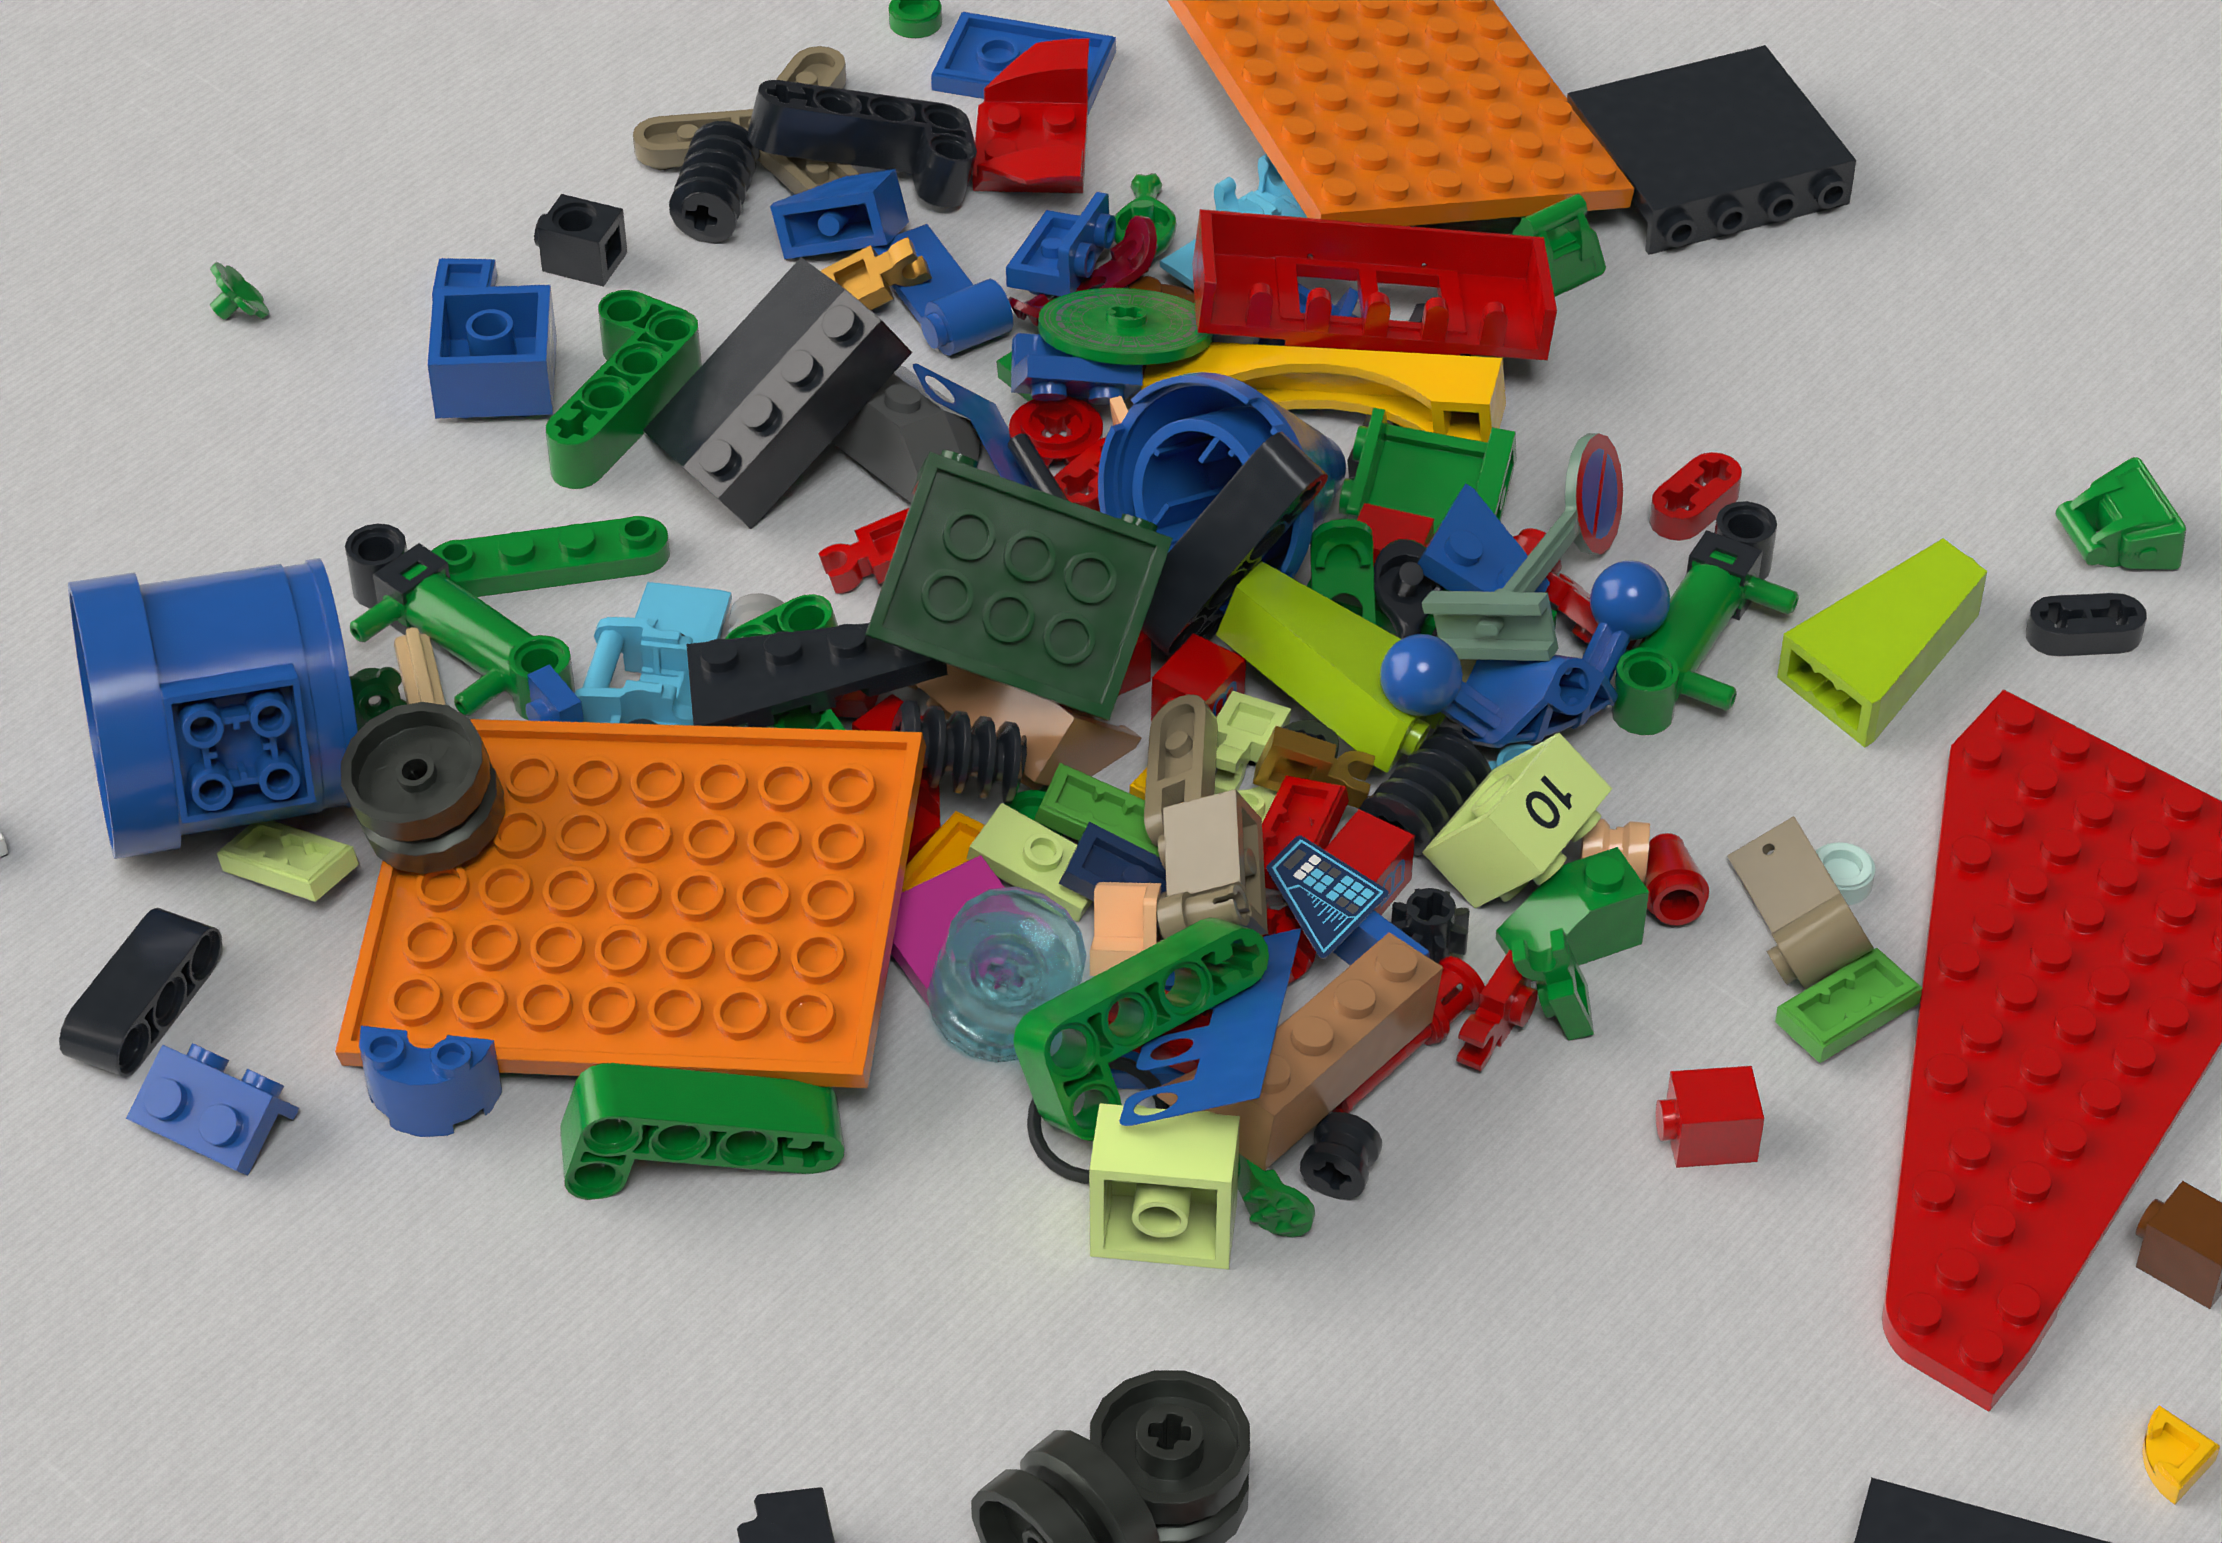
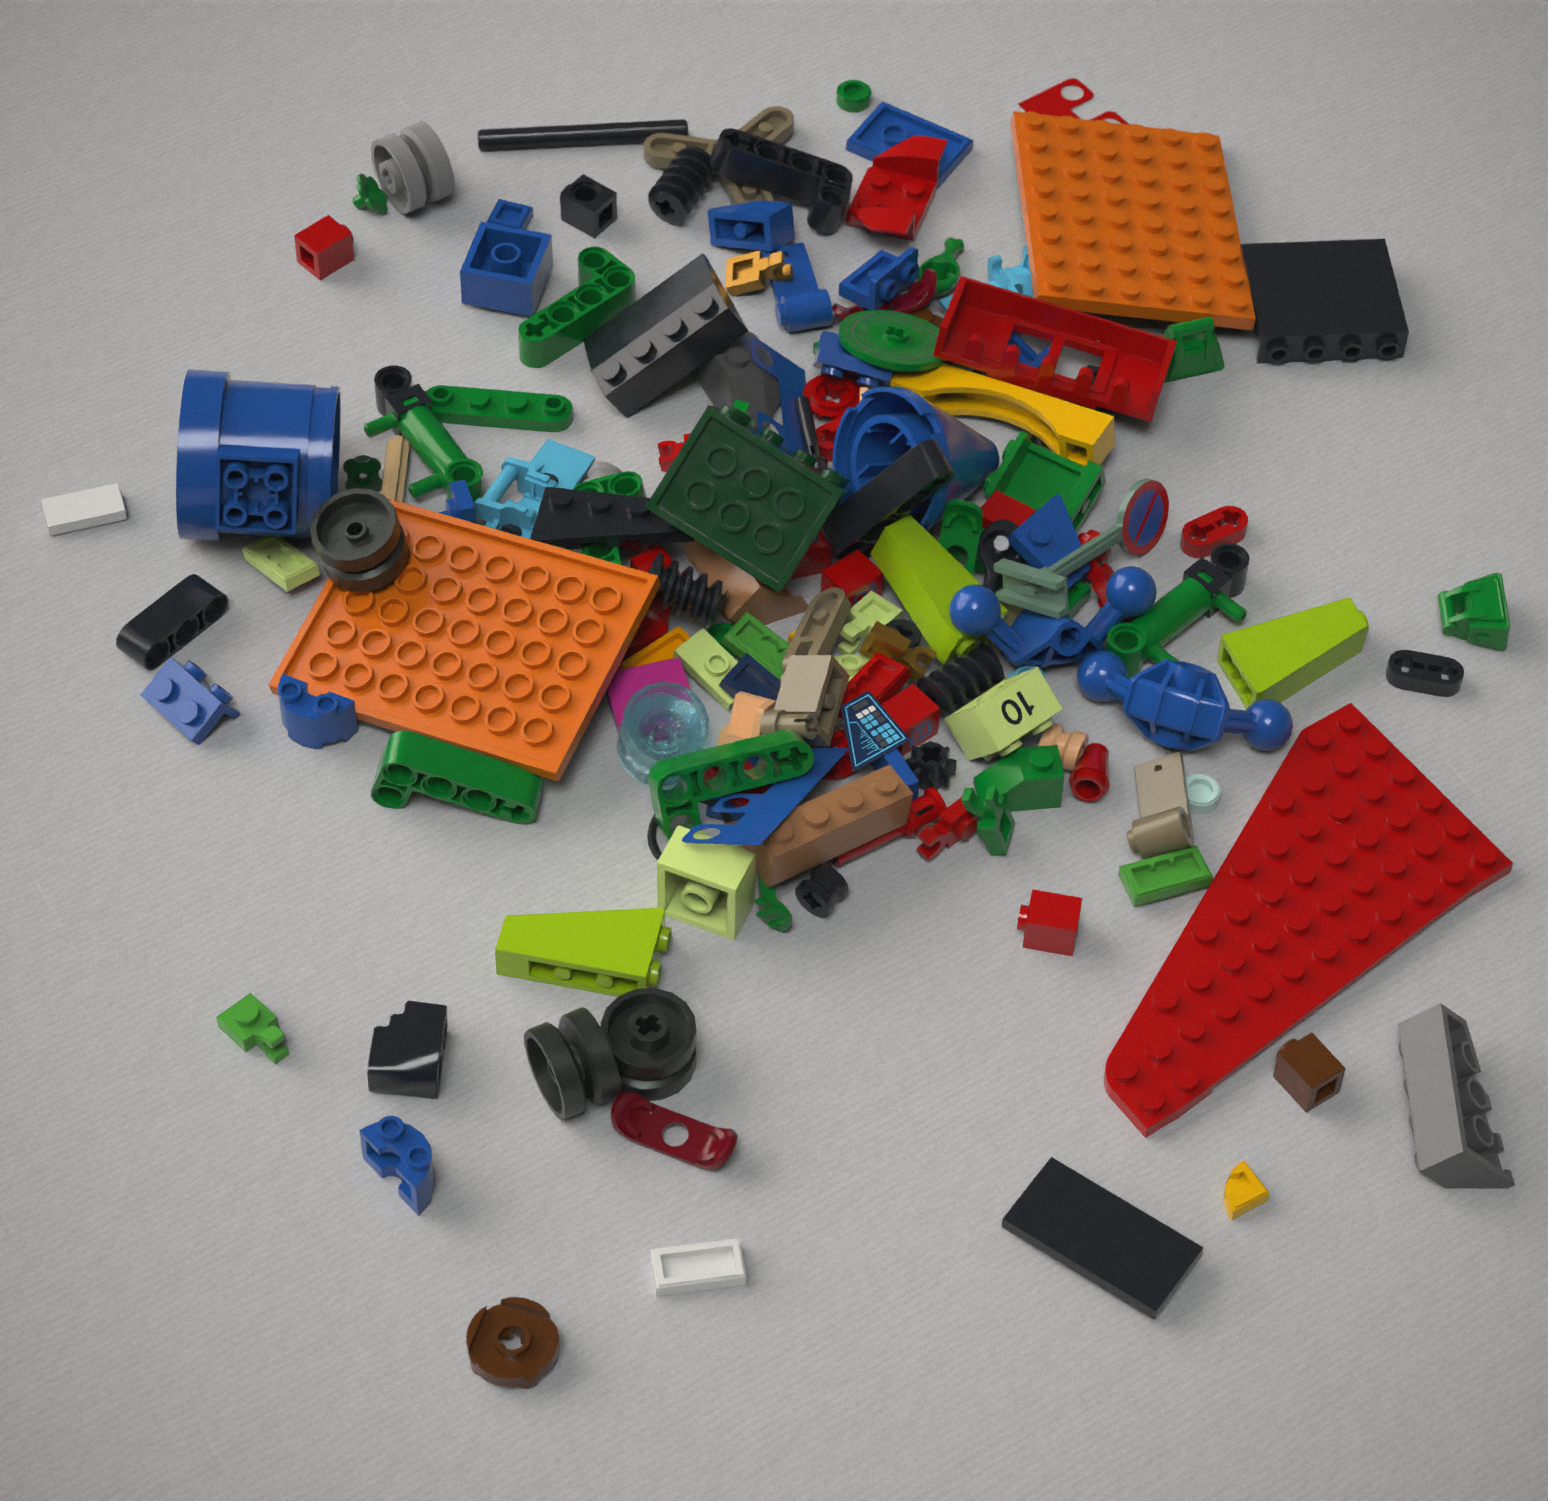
camera: 15 degrees right, 5 degrees up
(192, 381) = (324, 247): none -> red brick
(295, 236) = (412, 167): none -> light grey wheel
(521, 147) = (577, 134): none -> black axle
(1007, 1341) = (585, 949): none -> lime slope
(1768, 745) = (1181, 704): none -> blue piece

